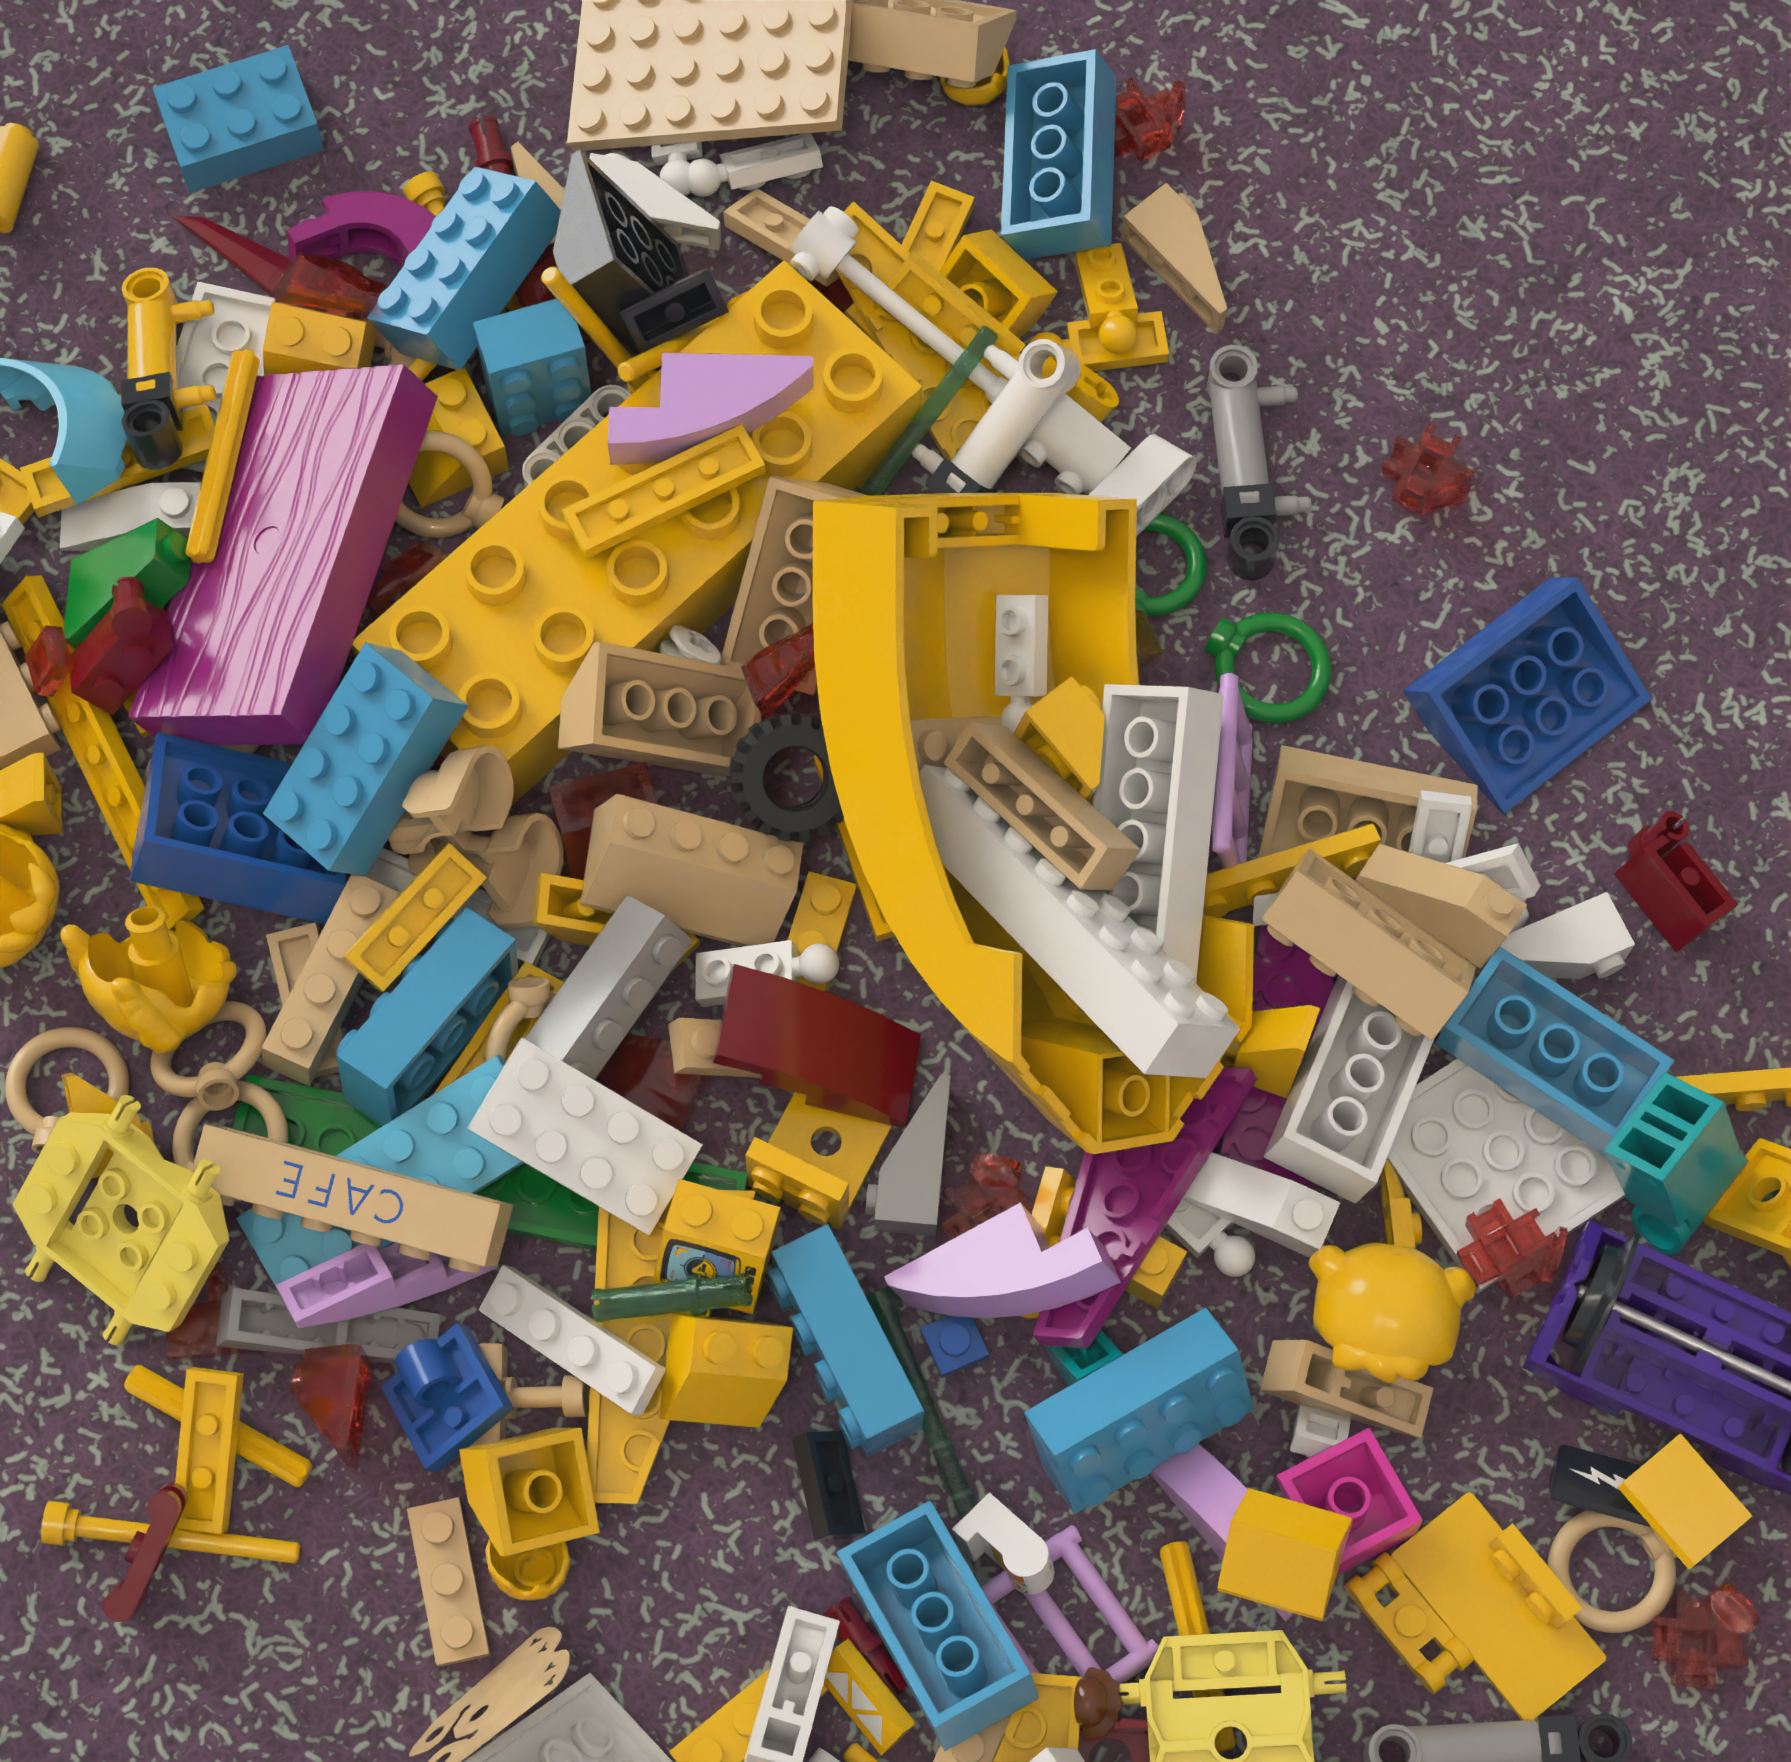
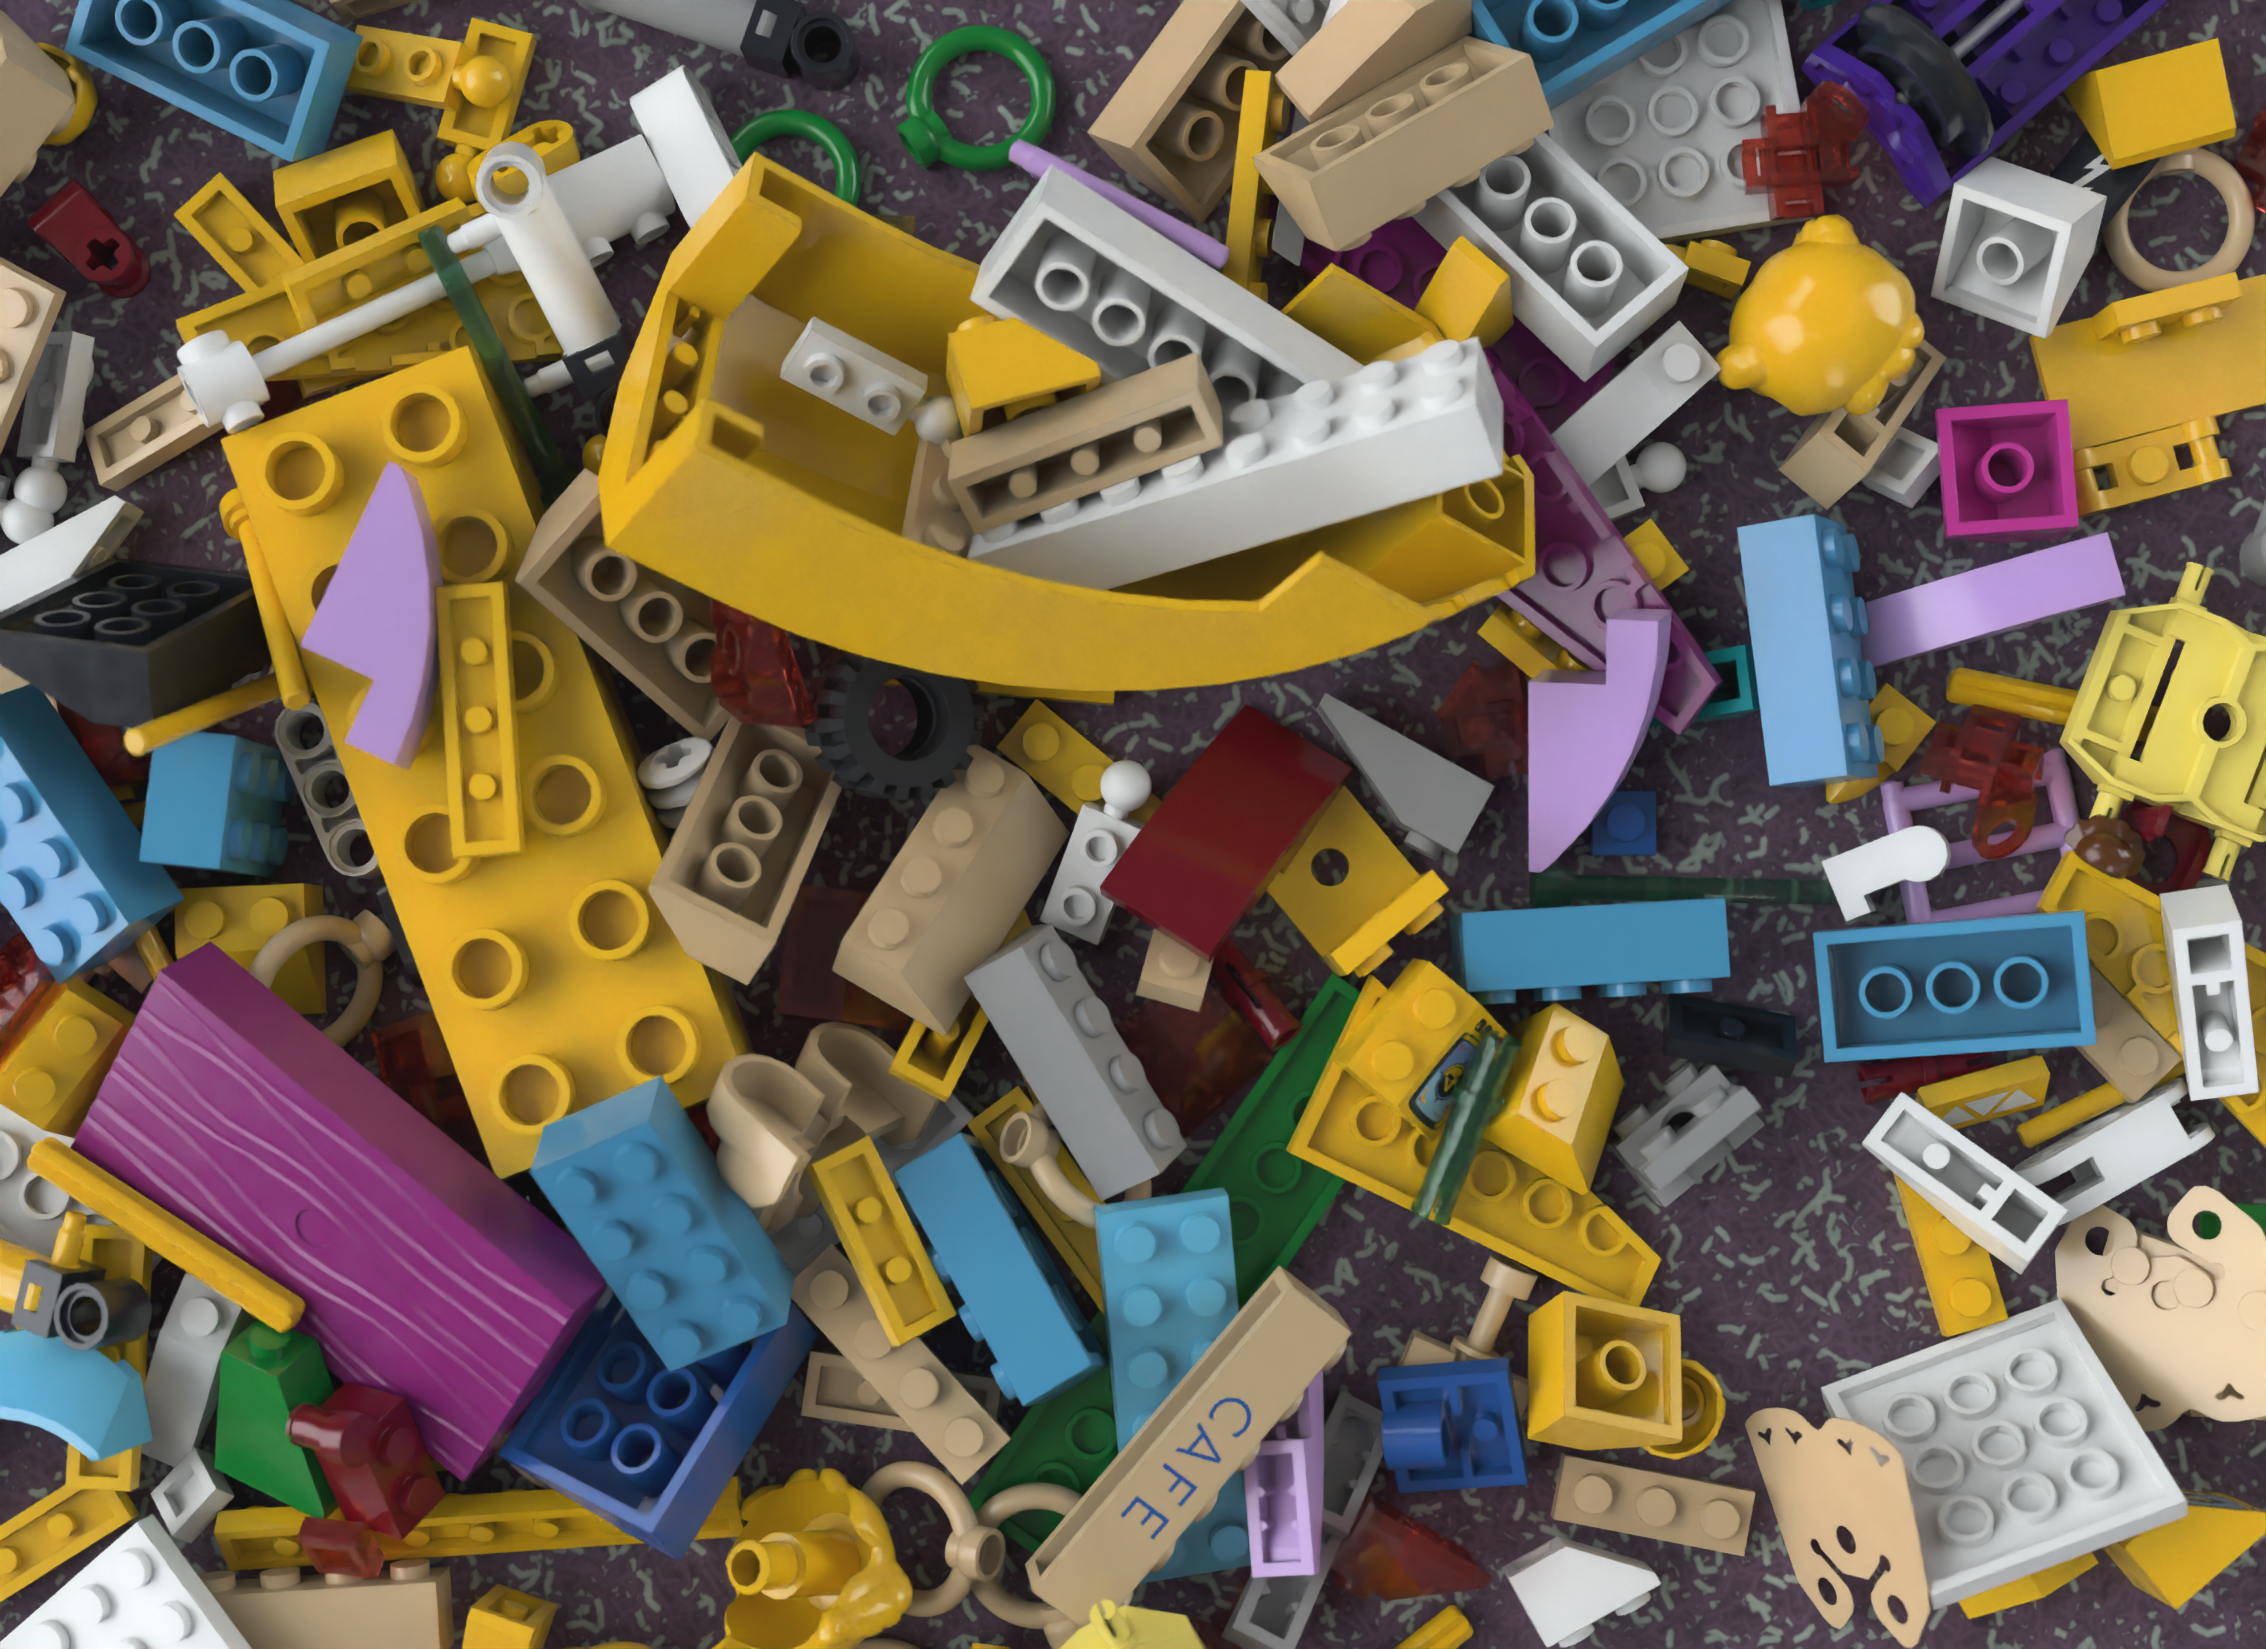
camera: 65 degrees left, 15 degrees up
(45, 556) = (192, 1495): none -> white plate
(362, 1539) = (1575, 1584): none -> white slope
(572, 1340) = (1452, 1256): white plate -> none
(584, 1136) = (1238, 1151): white plate -> none
(674, 310) = (232, 604): black slope -> none
(711, 1113) = (1273, 1020): none -> dark red pin
(764, 1481) = (1671, 1161): none -> light grey brick
(891, 138) = (88, 239): none -> dark red piece
(1113, 1598) = (1994, 766): none -> clear red piece
(1116, 1518) = (1902, 731): none -> yellow plate
(1283, 1553) = (2059, 566): yellow slope -> none
(1526, 1439) = (2016, 245): none -> white slope

